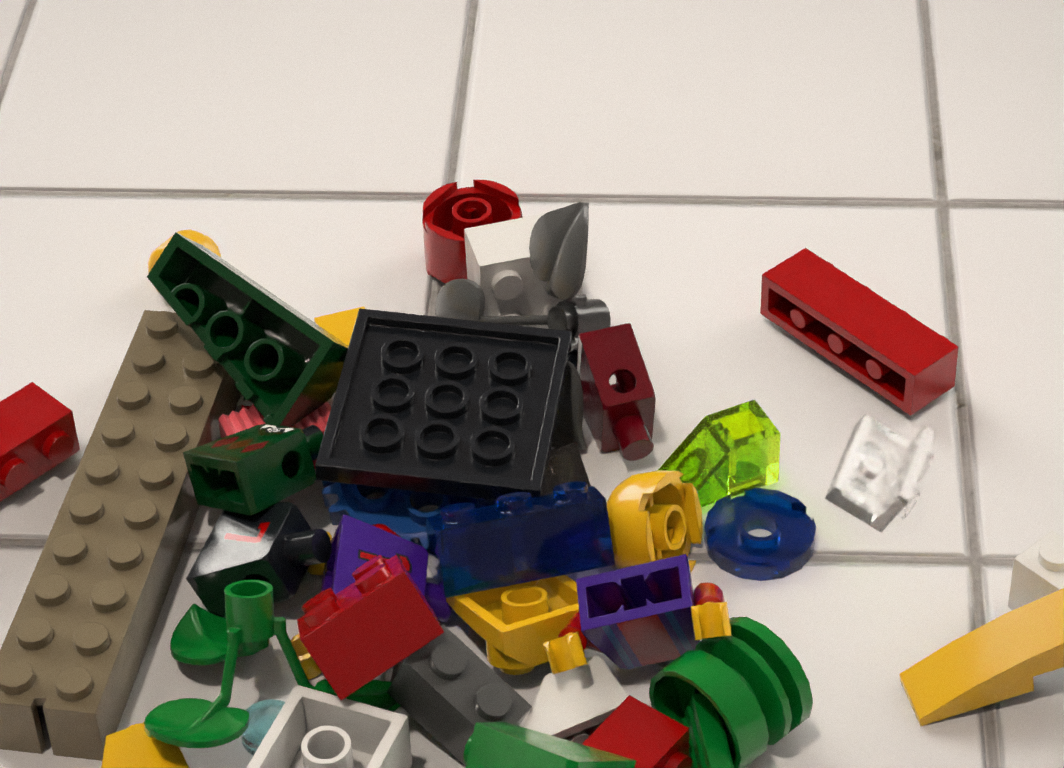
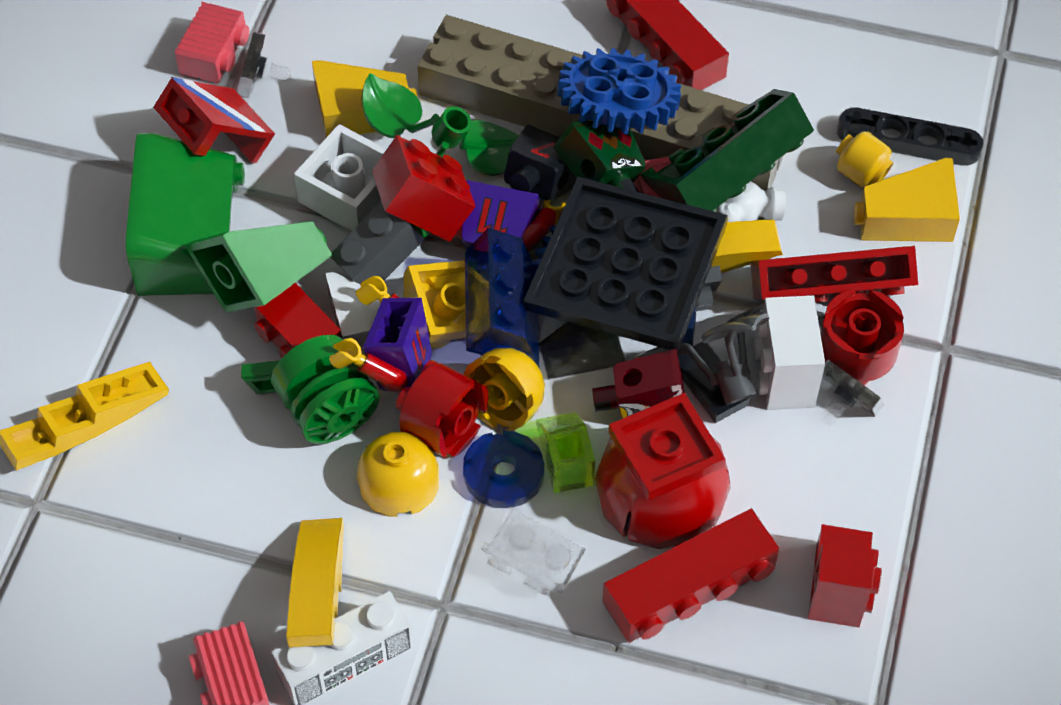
camera: 100 degrees right, 15 degrees up
(127, 245) = (910, 130): none -> black beam
(152, 441) = (619, 90): none -> blue gear
(248, 222) = (911, 206): none -> yellow slope
(382, 251) = (835, 273): none -> red brick
(729, 556) = (442, 408): none -> red brick
(730, 342) = (663, 472): none -> red plate
(814, 217) = (844, 576): none -> red brick
(819, 620) = (398, 474): none -> yellow cylinder

